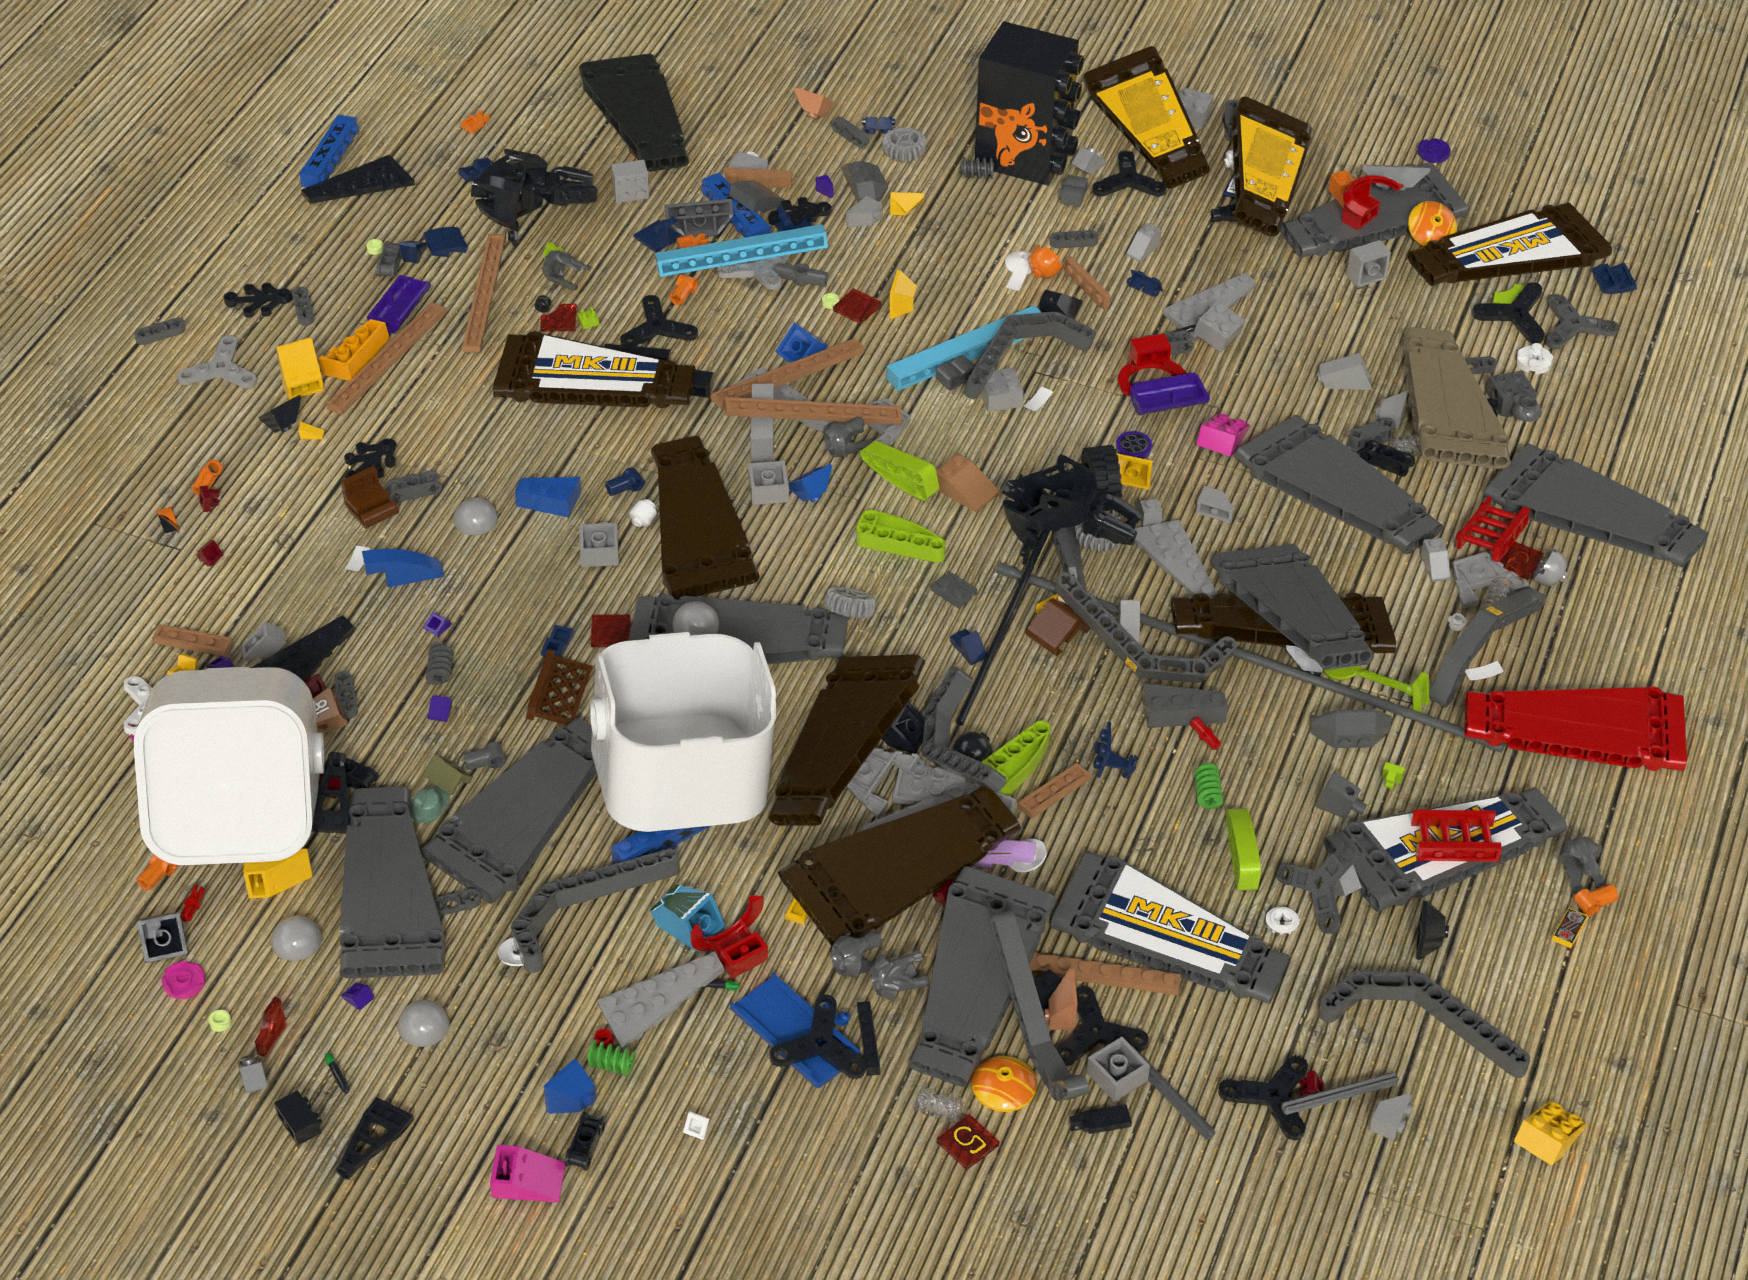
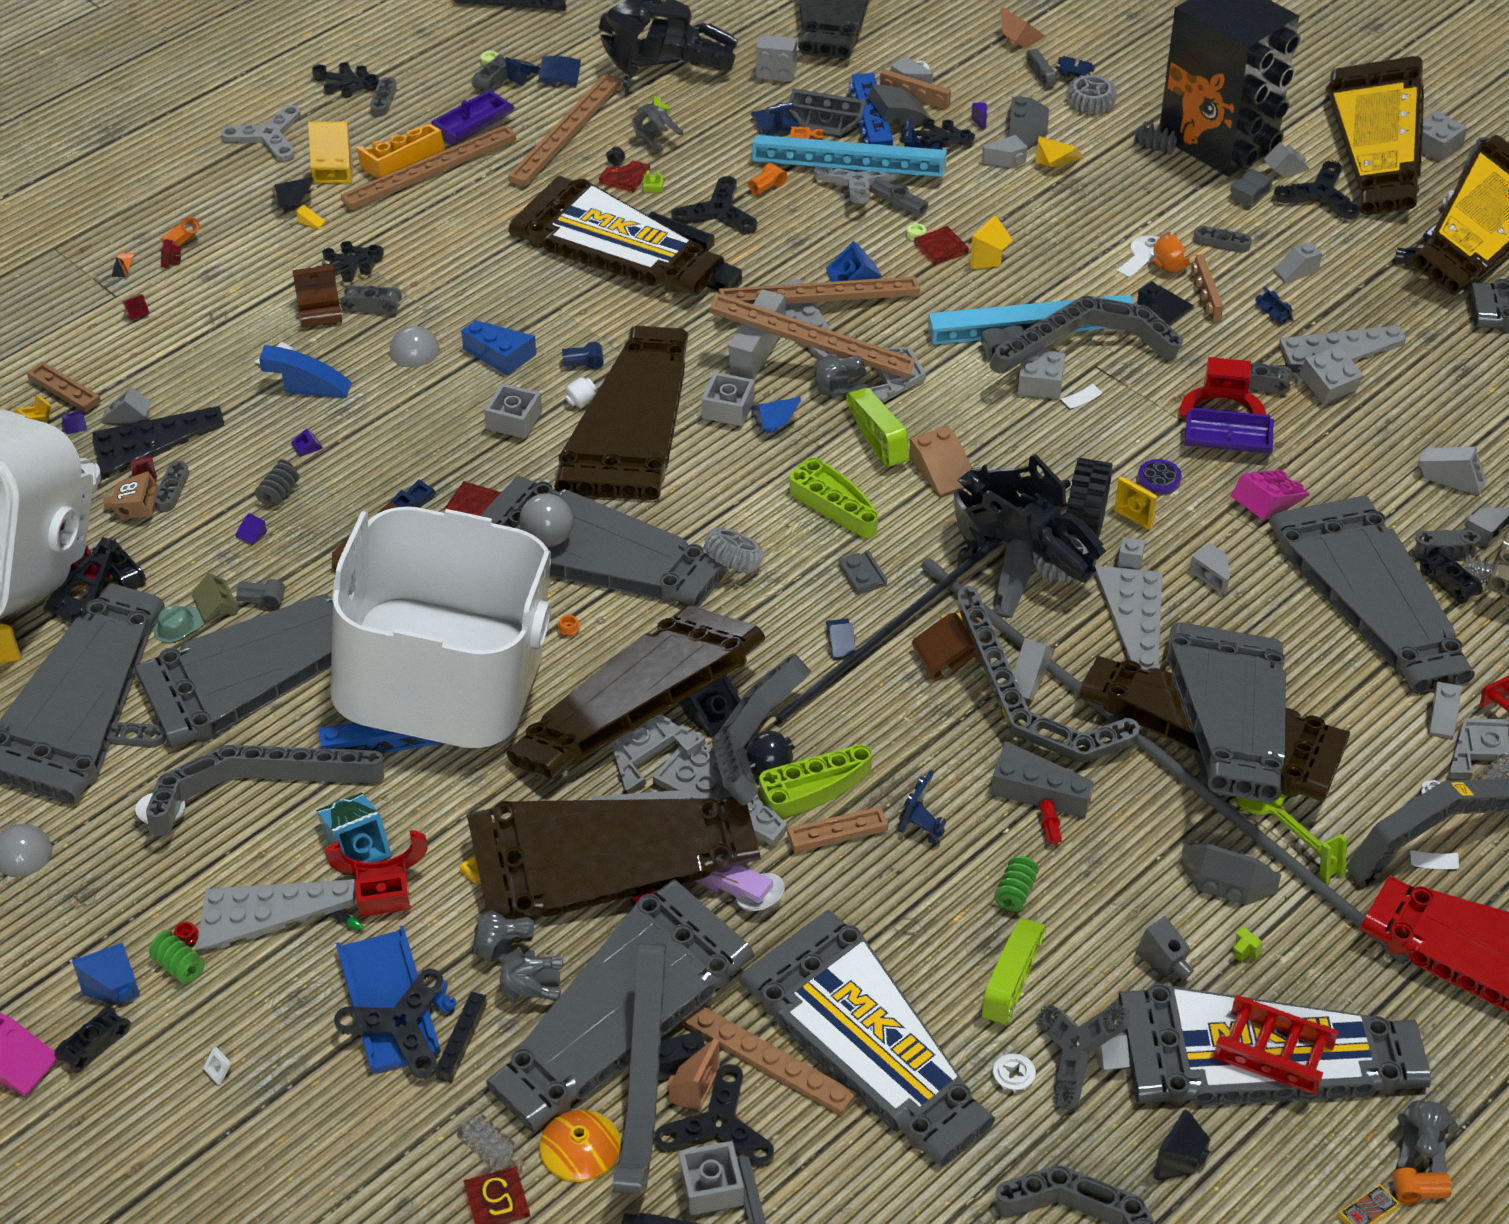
camera: 25 degrees right, 0 degrees up
(149, 335) = (226, 85): dark grey beam -> none

